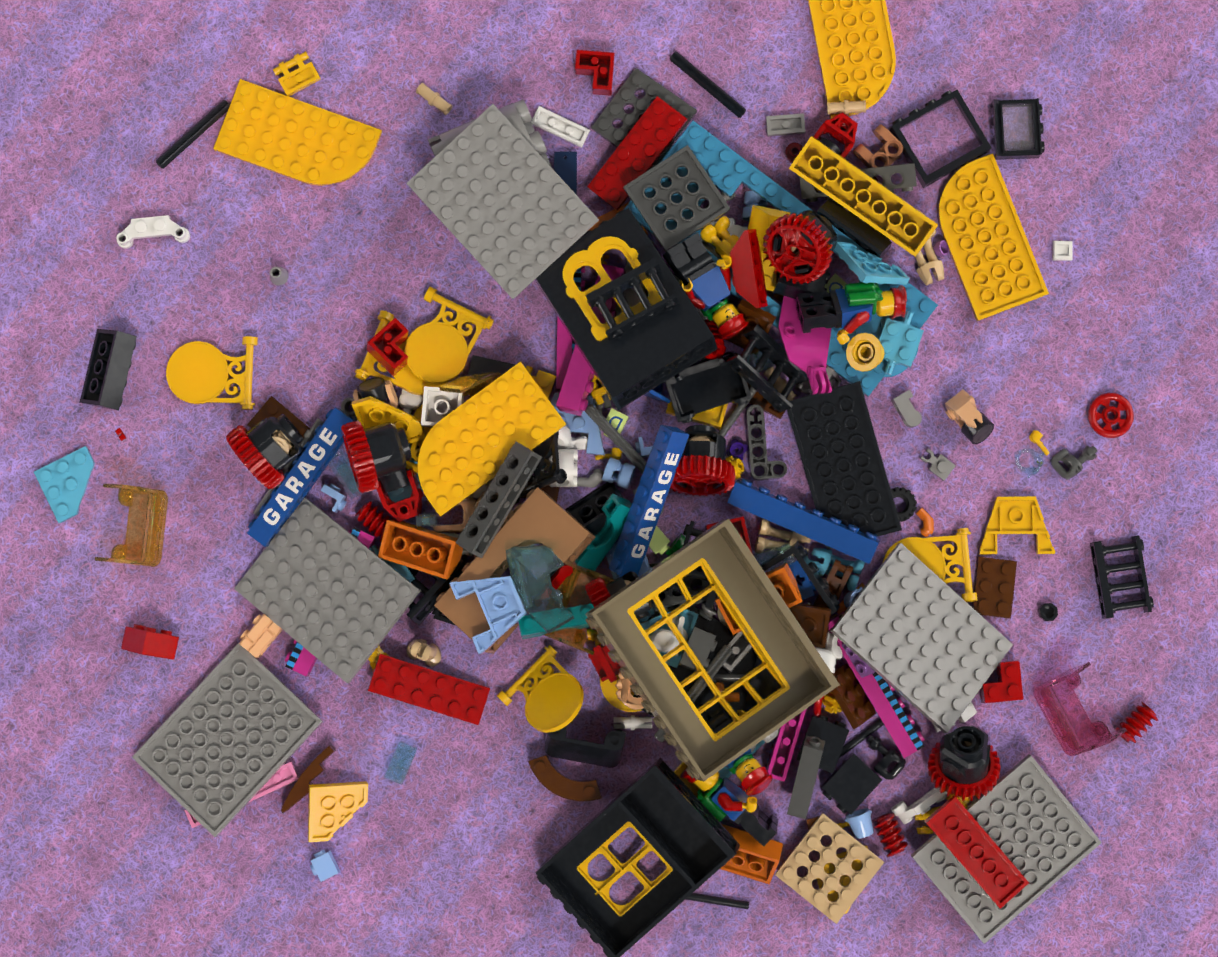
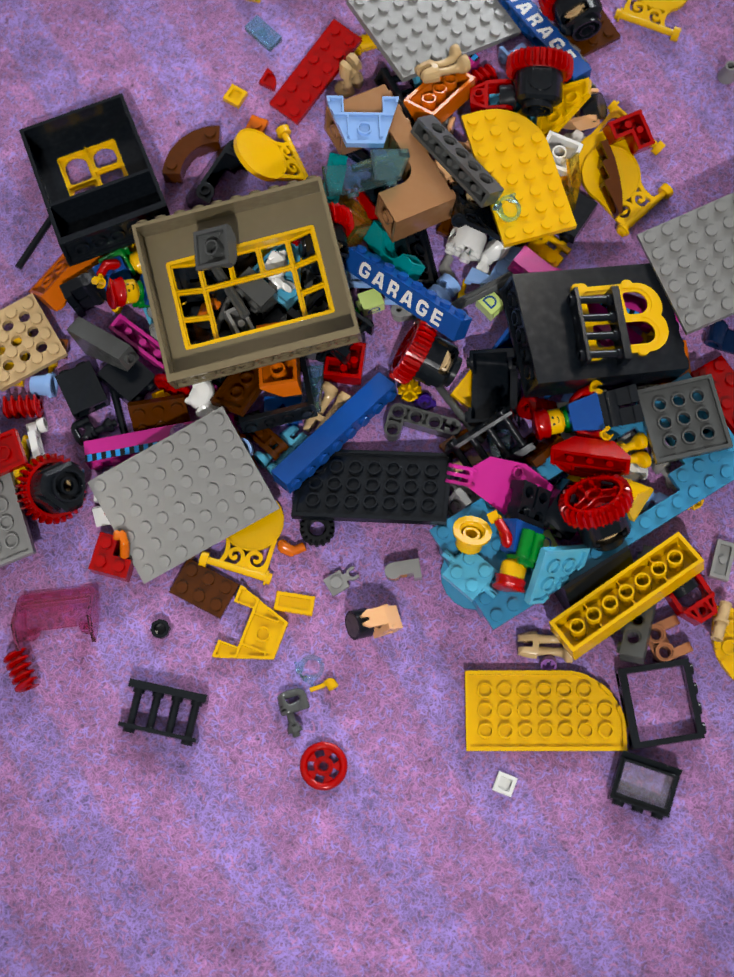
camera: 115 degrees right, 10 degrees down
(373, 547) = (431, 71): none -> tan piece
(427, 519) = (459, 110): clear light blue plate -> none
(451, 736) = (268, 80): none -> red tile
(452, 346) = (611, 185): none -> reddish brown slope
(483, 762) = (235, 96): none -> yellow plate
(507, 728) = (257, 123): none -> orange plate
(530, 442) = (498, 207): none -> clear light blue piece
(702, 686) = (215, 248): none -> dark grey slope
(975, 498) = (294, 603): none -> yellow tile
(988, 674) = (124, 543): none -> orange arm

